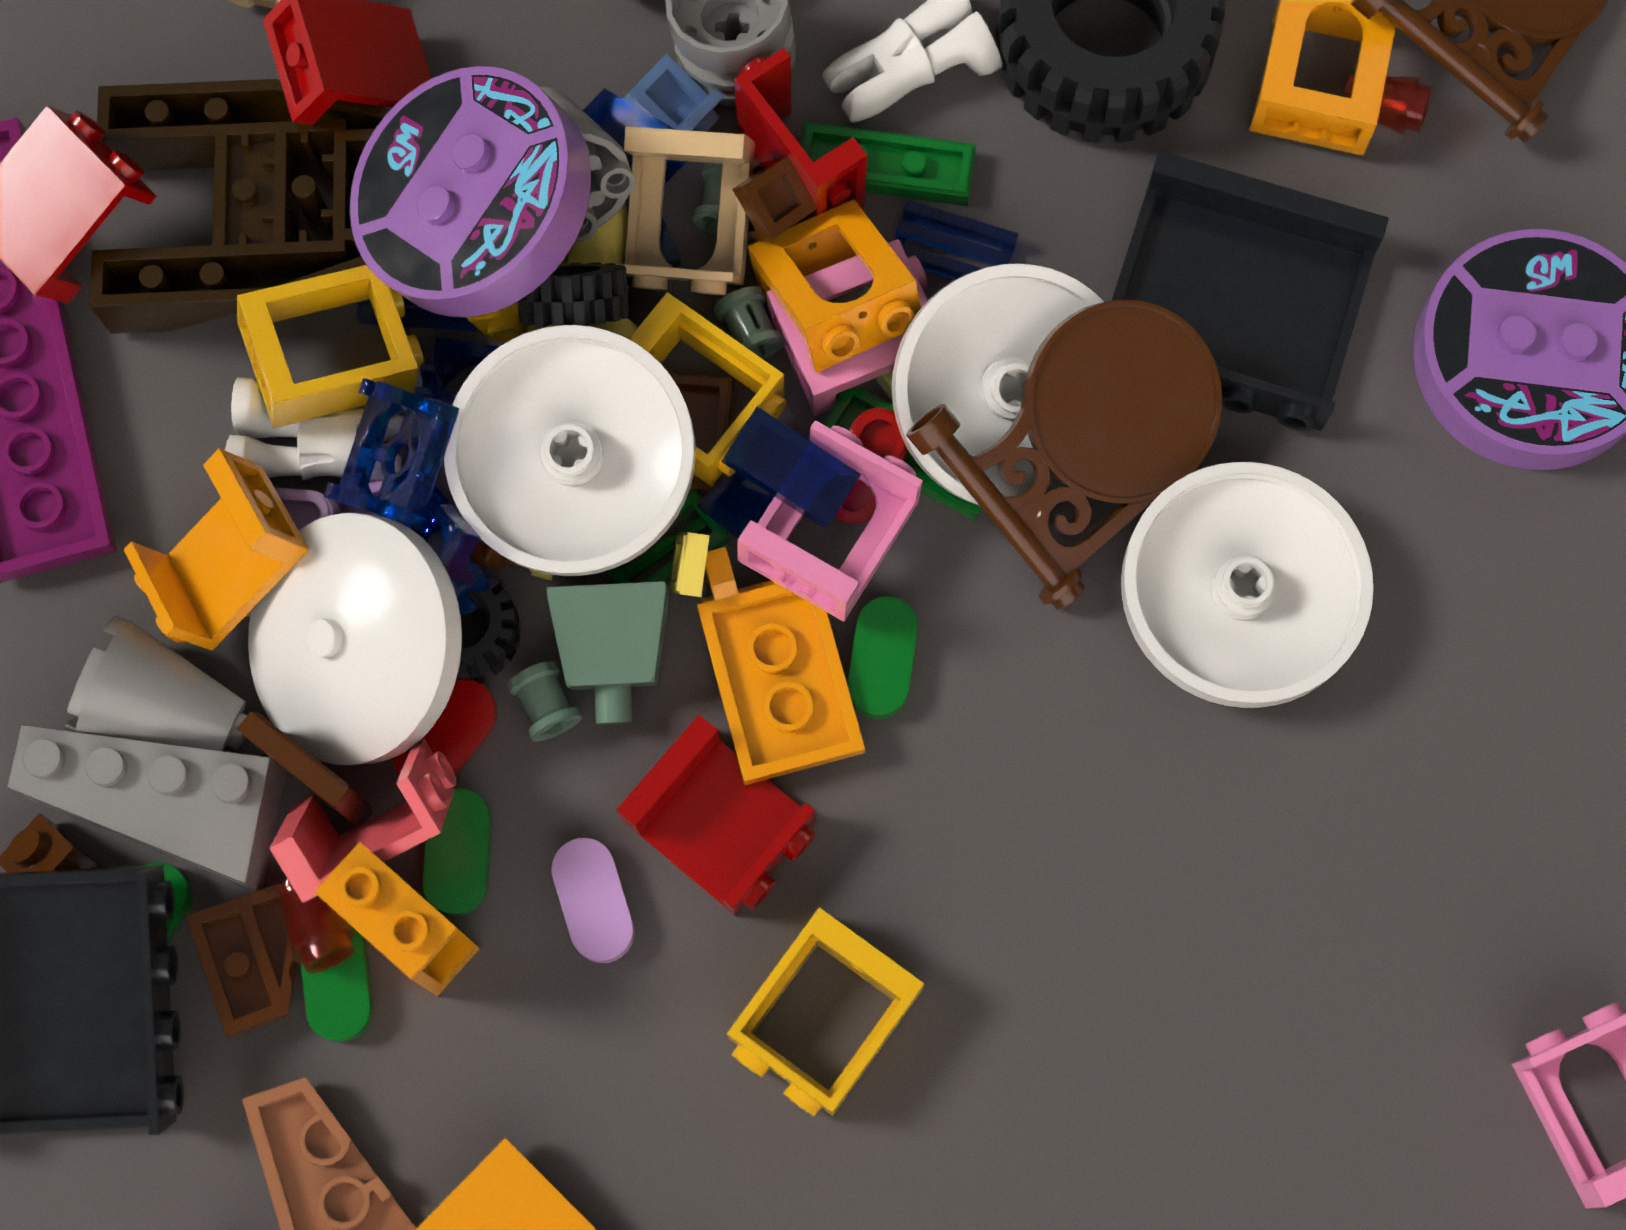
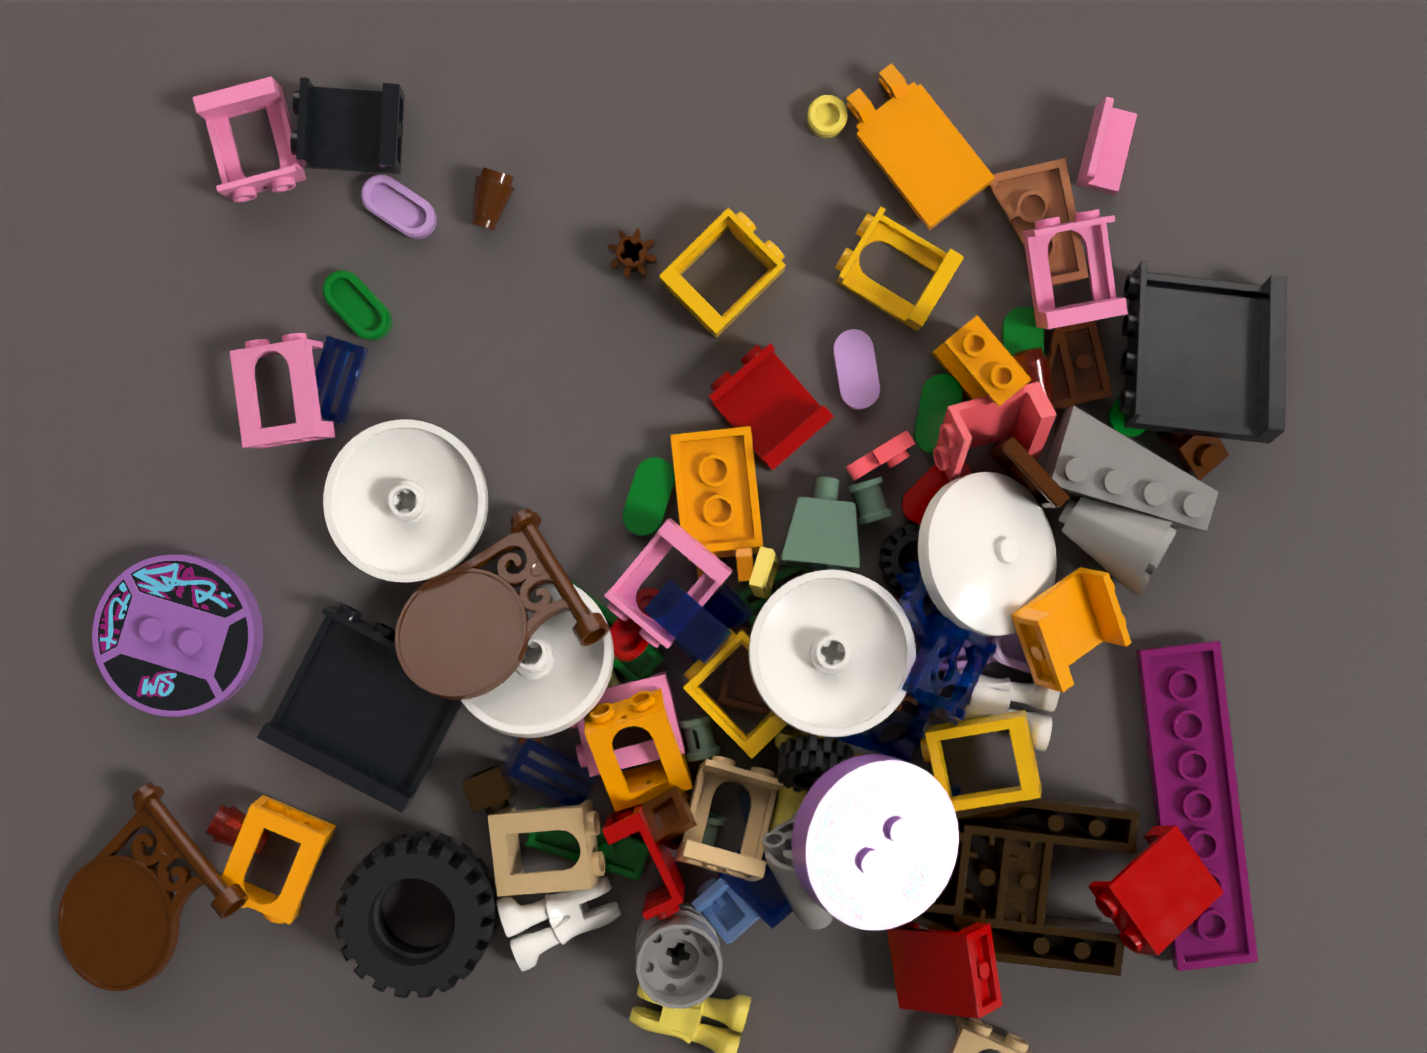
camera: 170 degrees left, 15 degrees up
(220, 1047) = (1094, 233): none -> bright pink panel
(513, 1000) = (889, 232): none -> yellow panel
(524, 778) = (891, 452): none -> coral plate
(901, 175) = (506, 852): none -> tan panel
(972, 1002) = (637, 244): none -> reddish brown gear
(1042, 209) = (489, 788): none -> dark brown plate
(1213, 1077) = (491, 197): none -> reddish brown cone
(1356, 1041) = (399, 206): none -> lavender tile
(1386, 875) = (357, 305): none -> green tile
(1399, 705) = (352, 380): none -> clear blue tile
(1460, 774) = (299, 356): none -> bright pink panel
(1464, 1153) = (348, 128): none -> black panel

